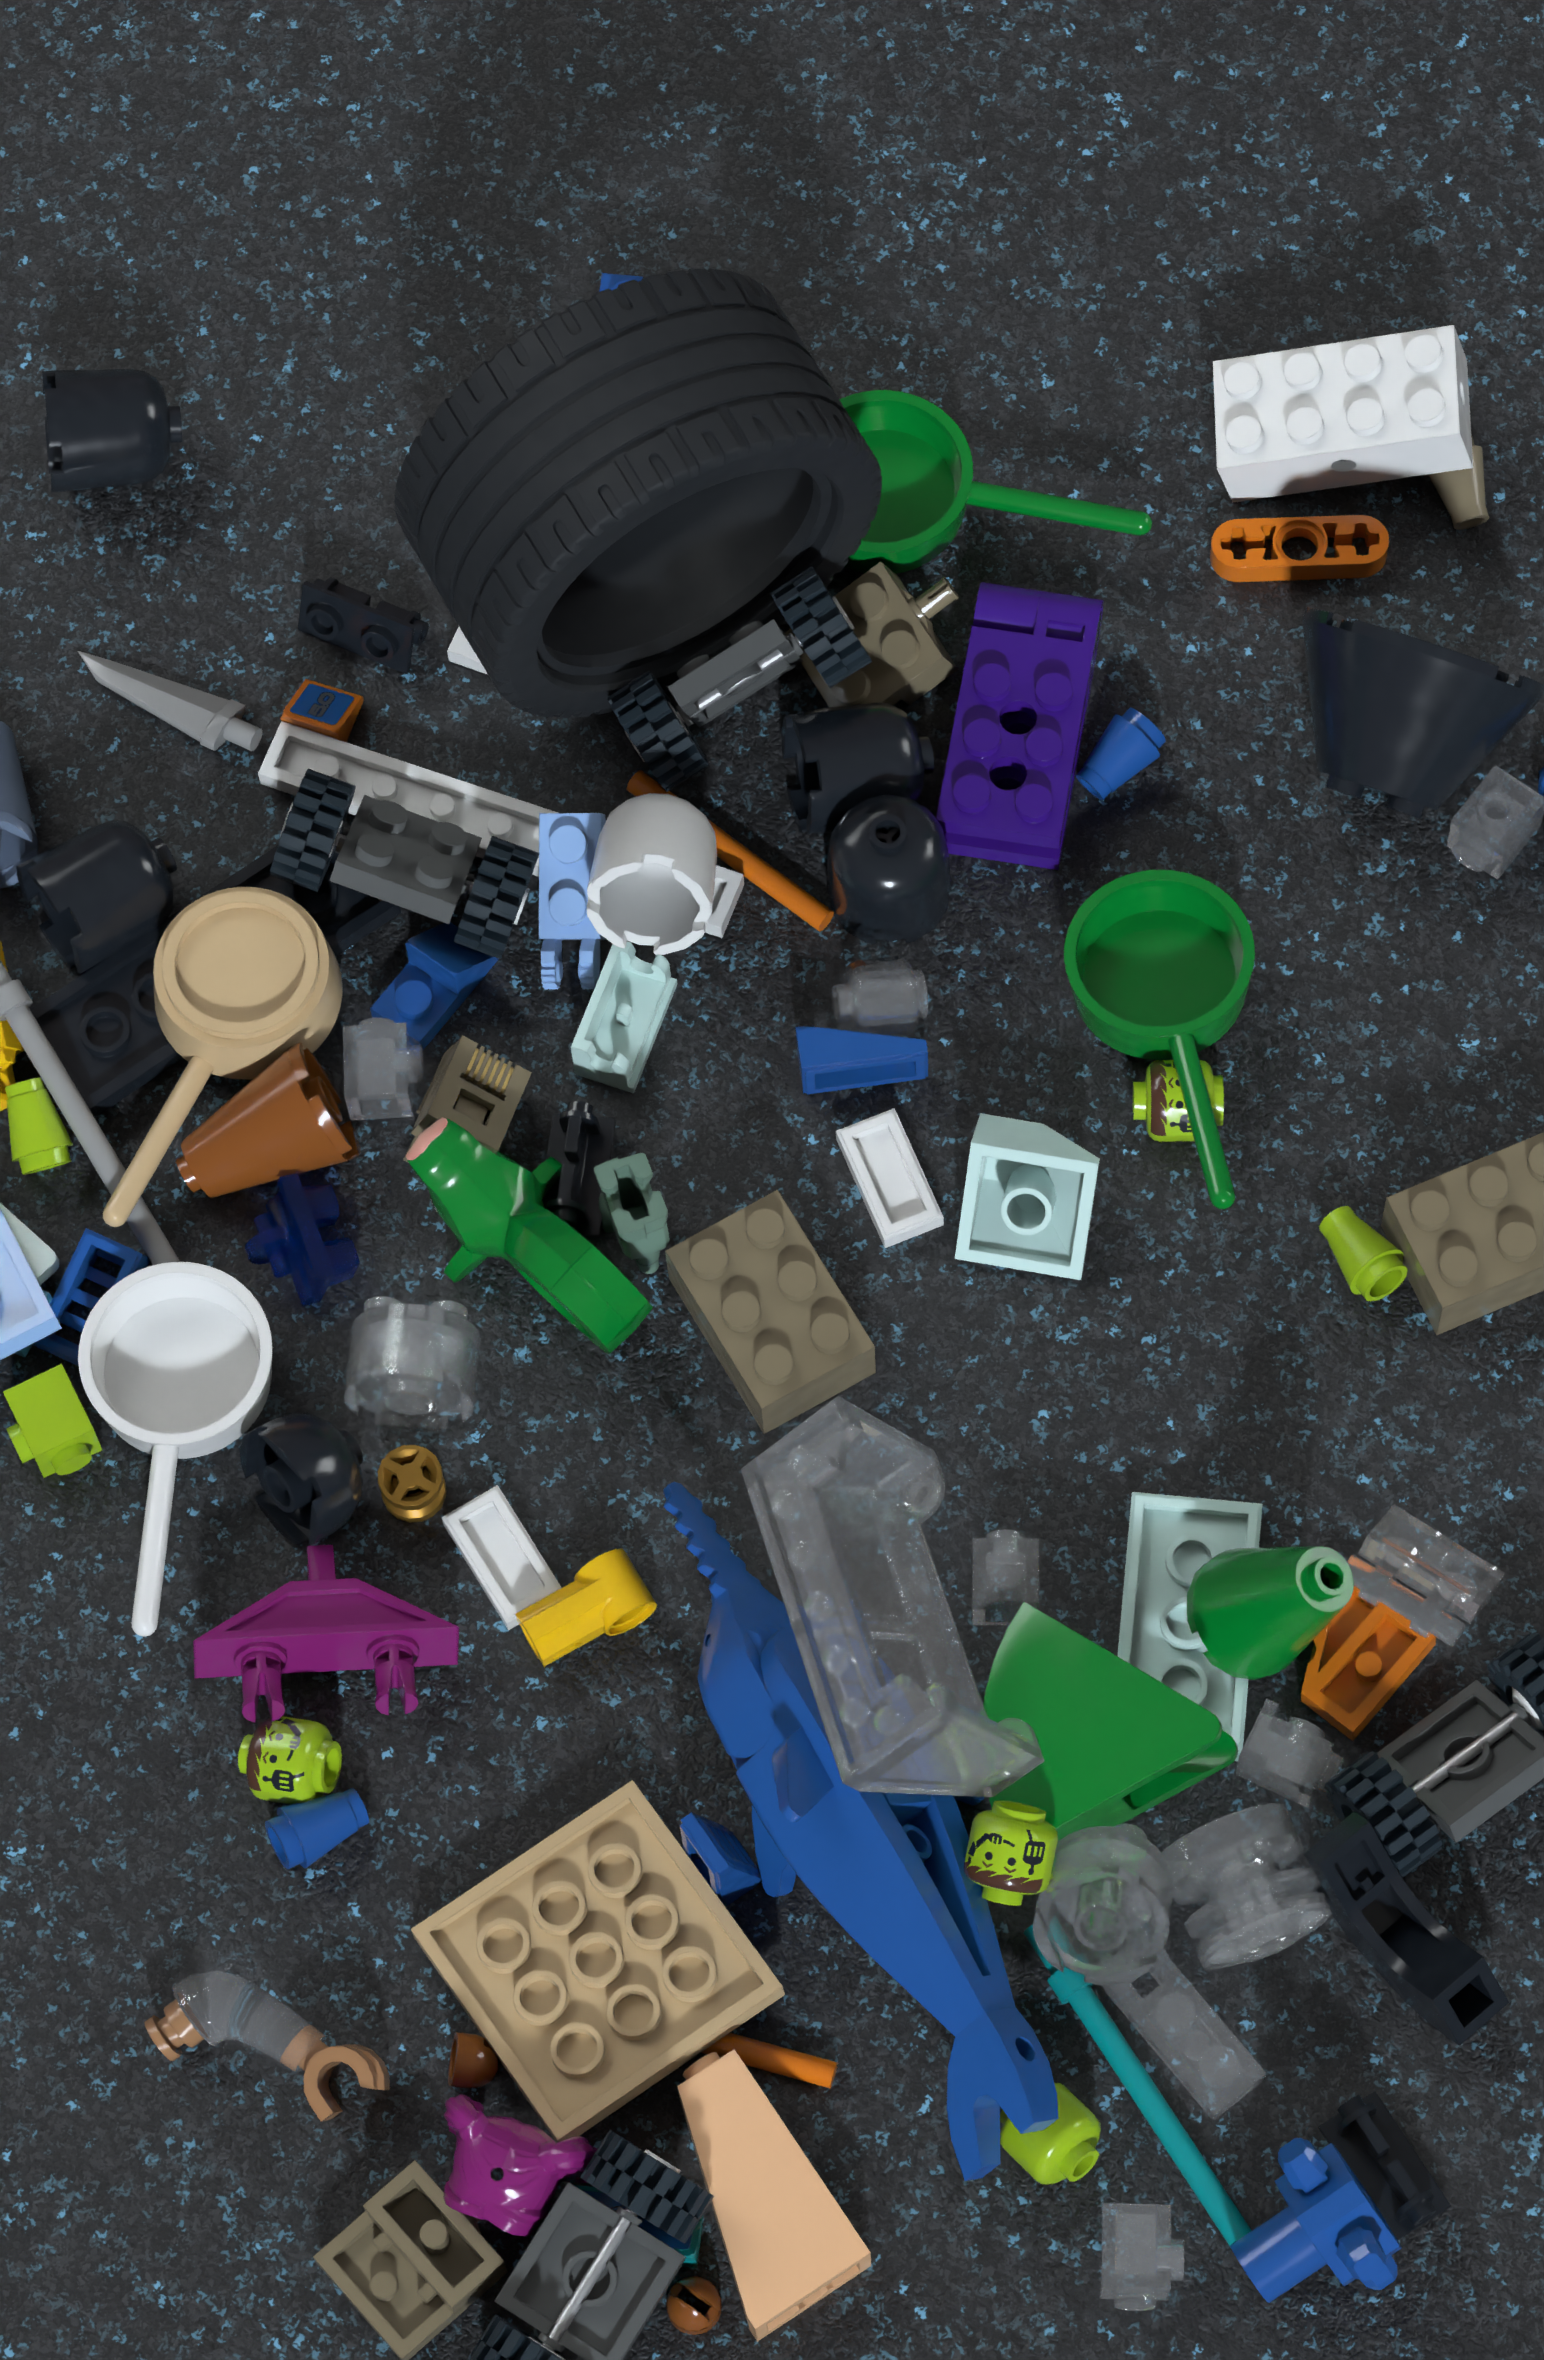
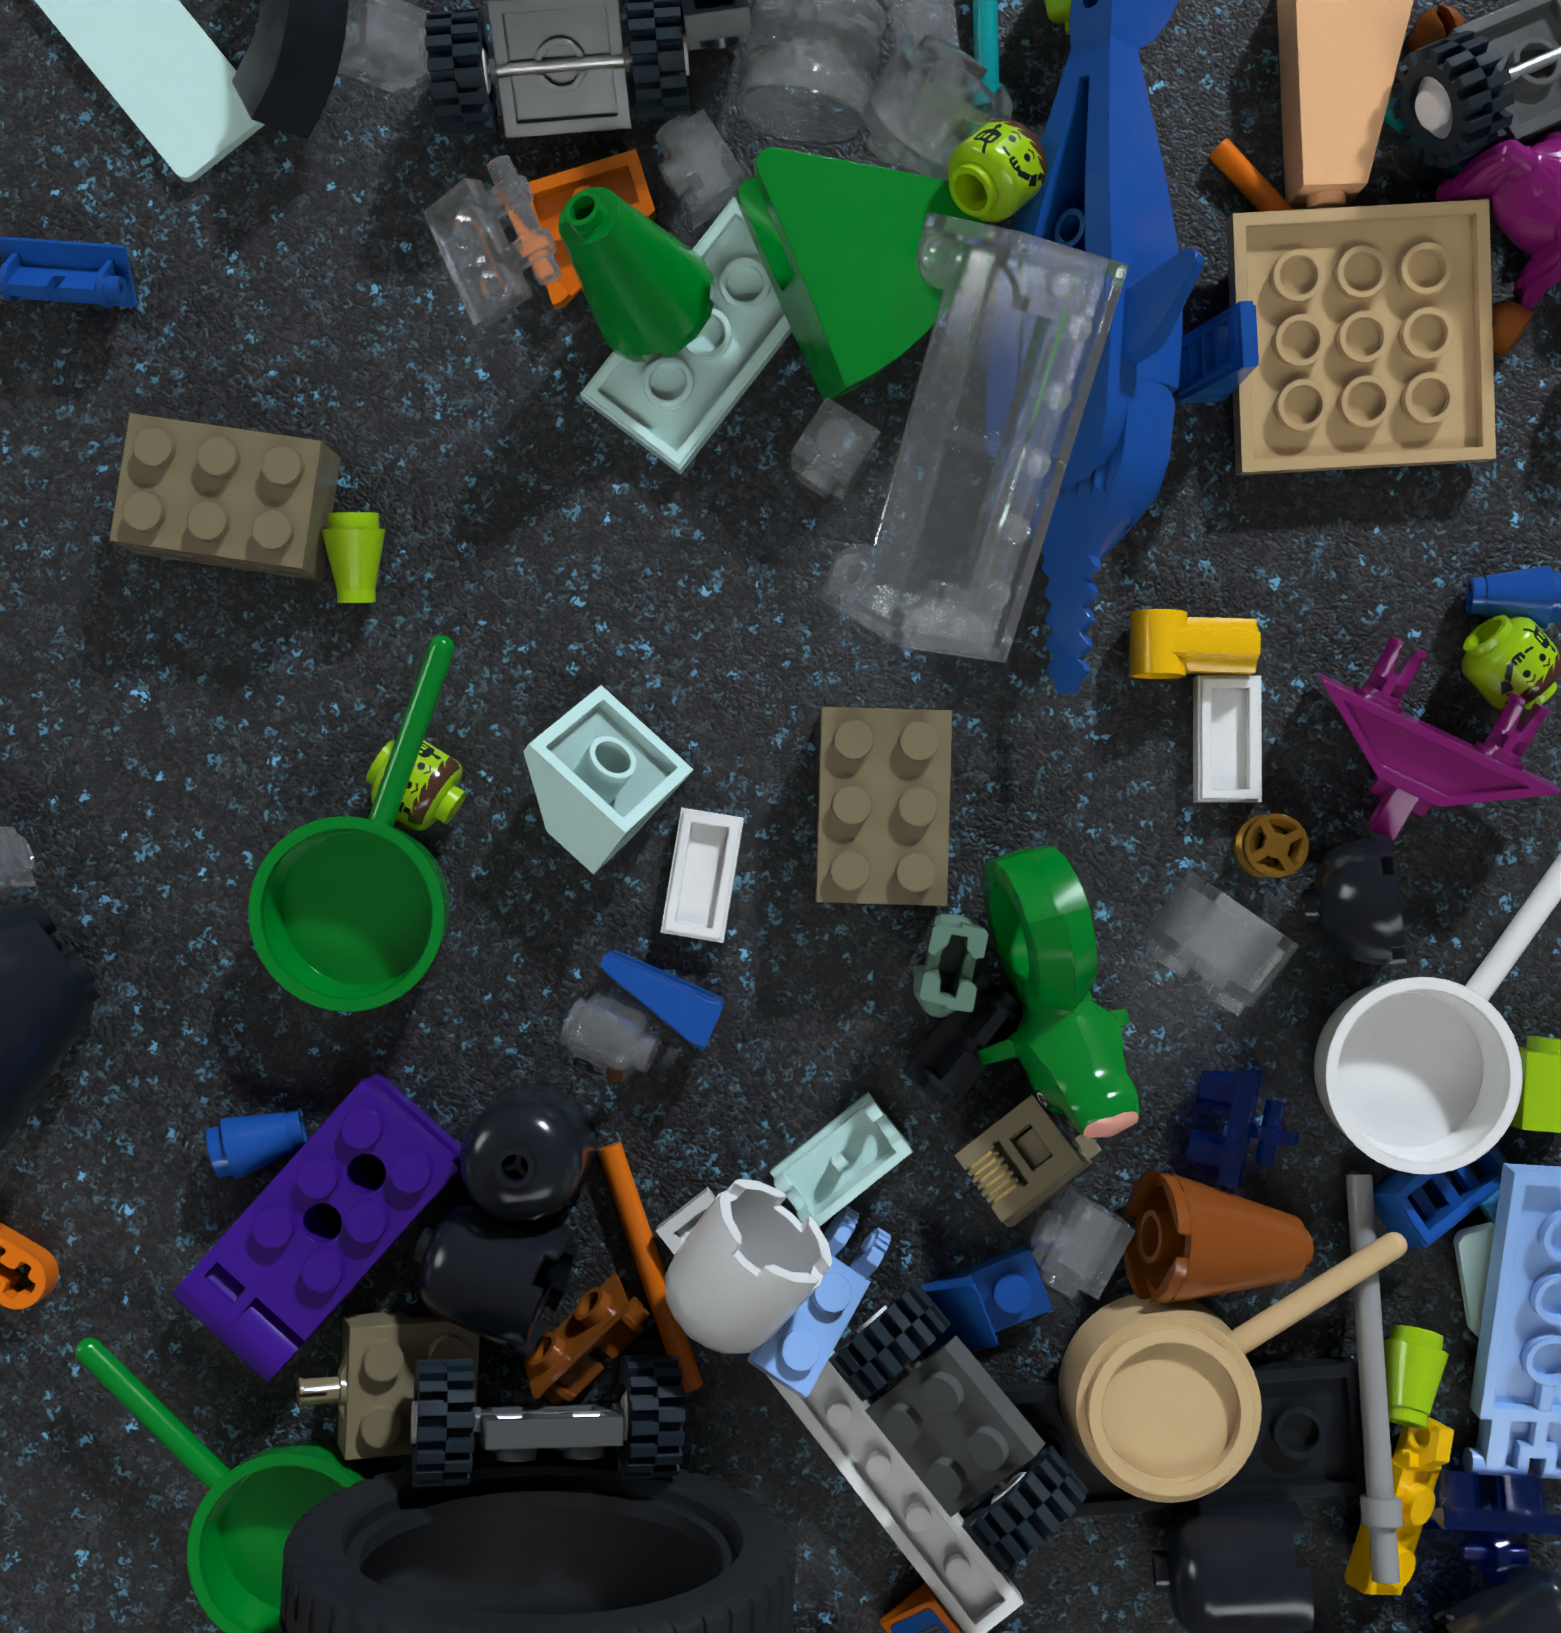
camera: 150 degrees left, 20 degrees up
(754, 740) = (564, 1358): none -> dark orange hinge

